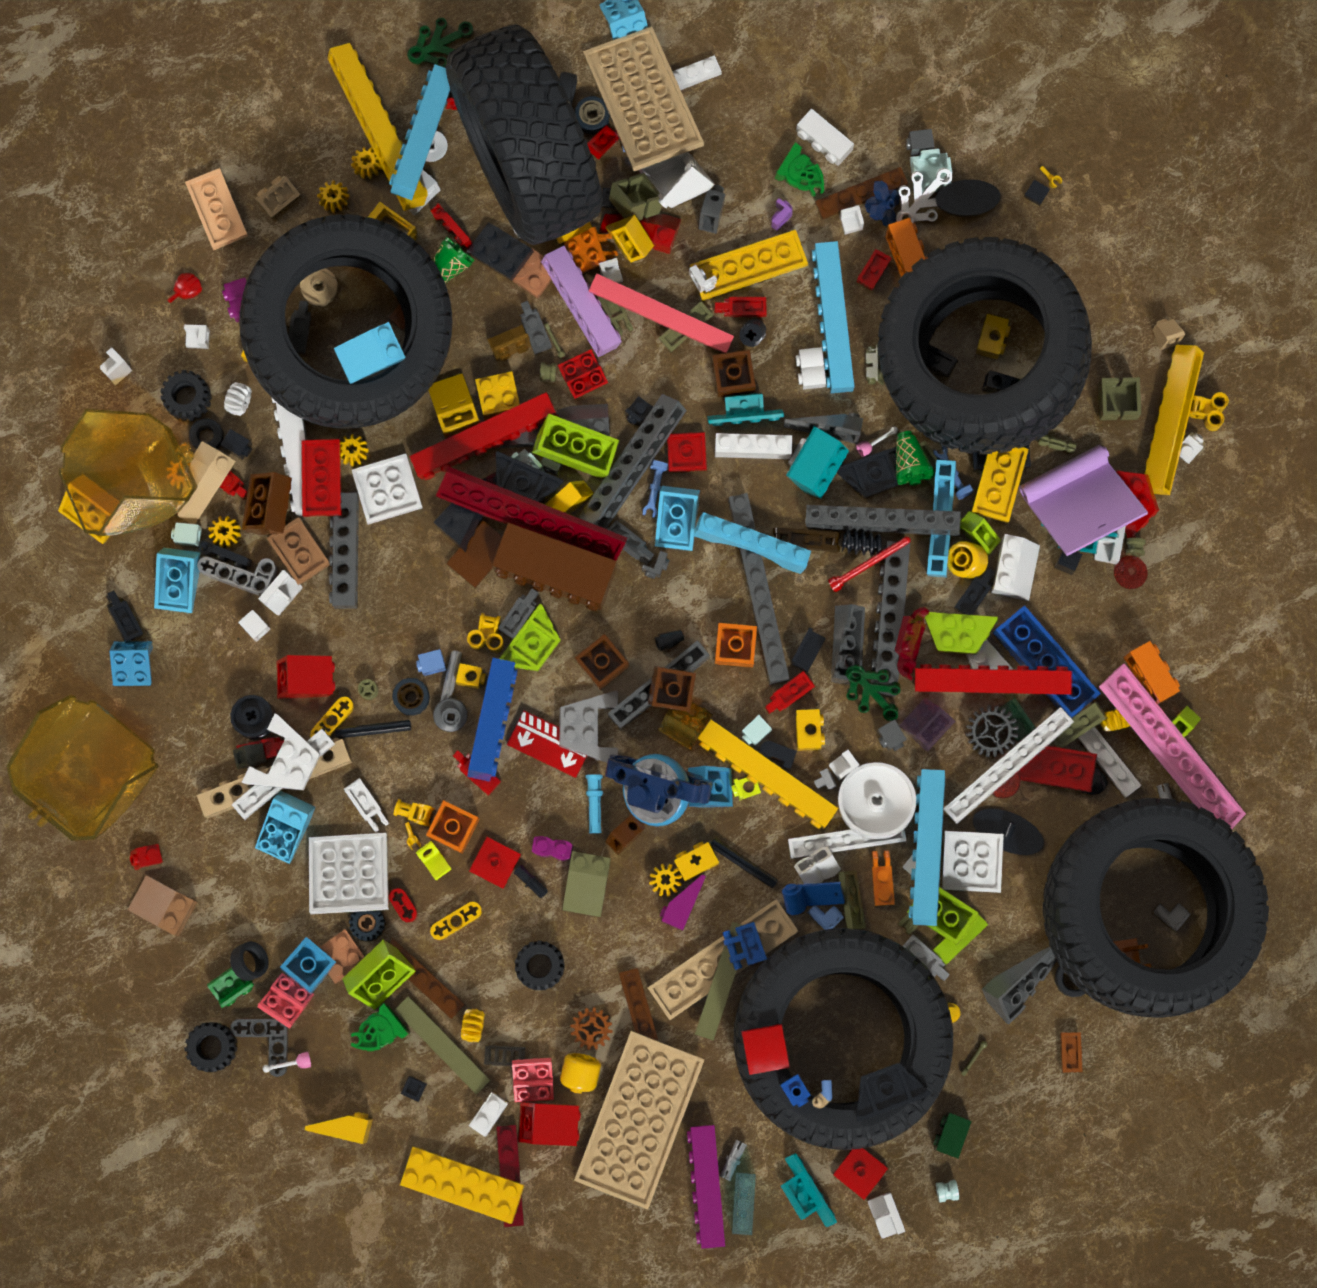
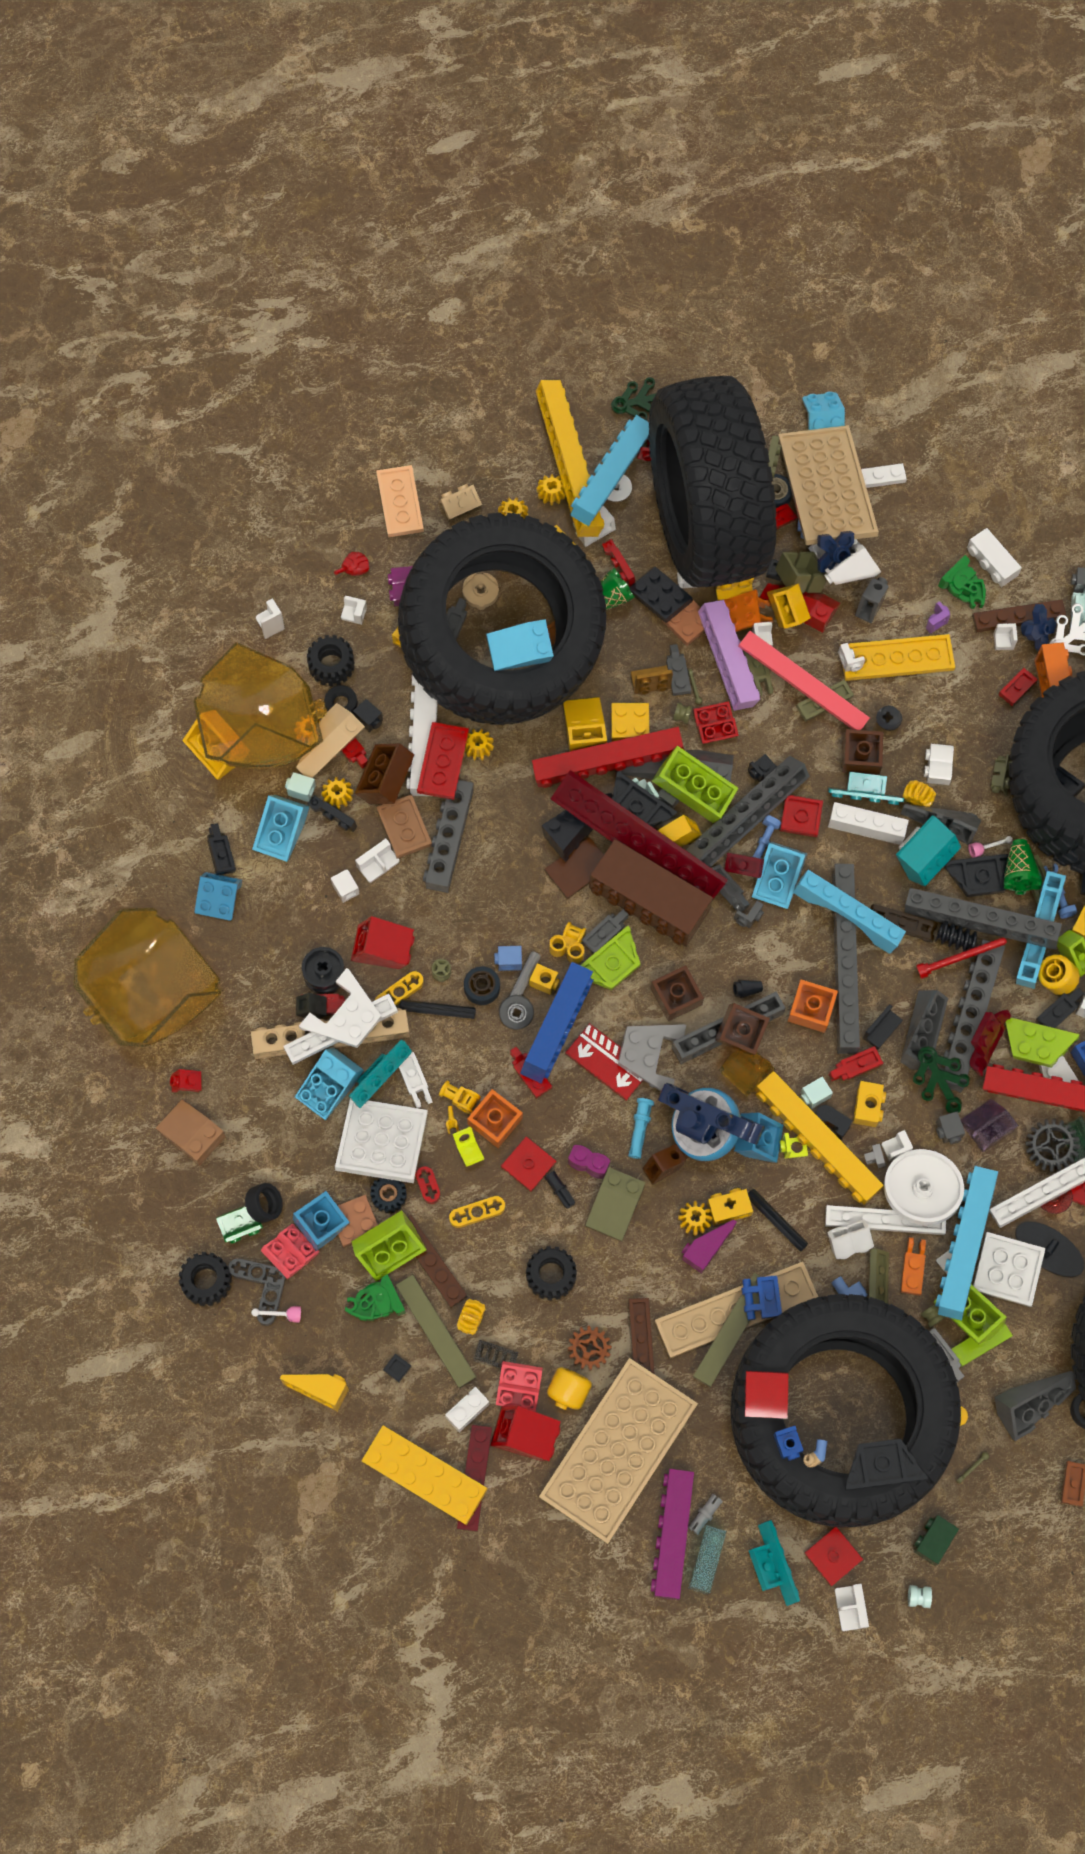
camera: 10 degrees right, 10 degrees down
(235, 573) = (339, 833): light grey beam -> none
(237, 399) = (379, 673): white gear -> none
(330, 808) = (379, 1072): none -> teal bracket
(387, 489) = (502, 787): white plate -> none
(582, 83) = (774, 451): none -> olive plate
(640, 517) = (744, 865): none -> dark red plate
(665, 172) = (835, 550): none -> dark blue plant
(742, 307) = (883, 694): red hinge -> none
(797, 405) = (919, 794): none -> yellow gear
(802, 895) = (829, 1264): blue door -> none
(833, 317) = (970, 722): medium azure brick -> none

